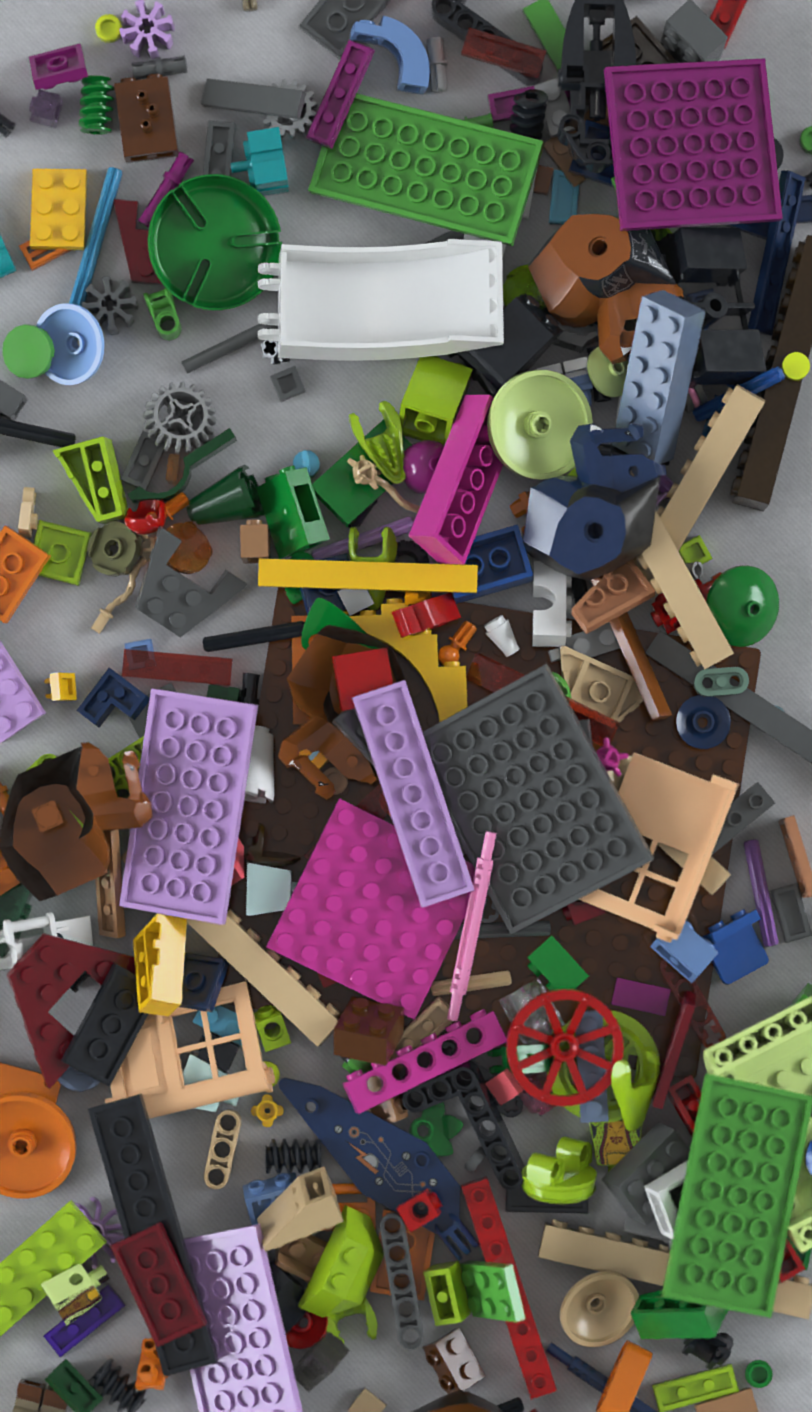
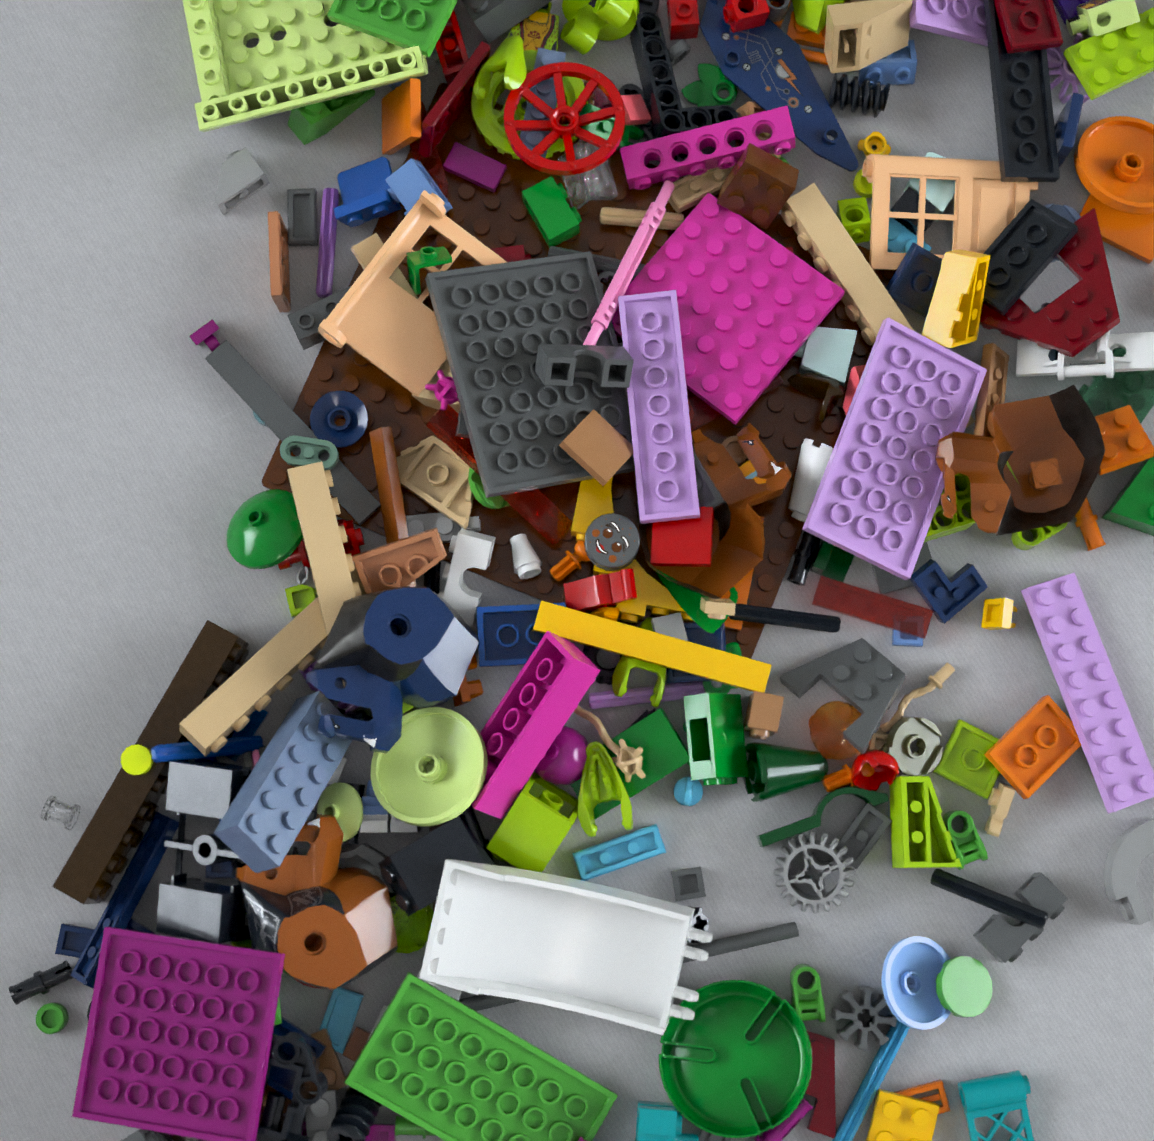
camera: 170 degrees left, 5 degrees down
(51, 476) = (966, 839): none -> bright green piece
(89, 1163) = (1067, 126): none -> dark blue plate
(173, 469) = (832, 818): clear orange tile -> none
(216, 1161) = (931, 107): tan beam -> none
(316, 620) = (718, 607): none -> tan plate
(355, 396) = (619, 852): none -> medium azure tile
(425, 660) = (612, 542): none -> dark grey head
(458, 738) = (597, 447): none -> medium nougat slope
(470, 818) = (562, 363): none -> dark grey arch
(659, 877) = (423, 258): none -> green bracket
(717, 1016) = (401, 116): none -> orange tile

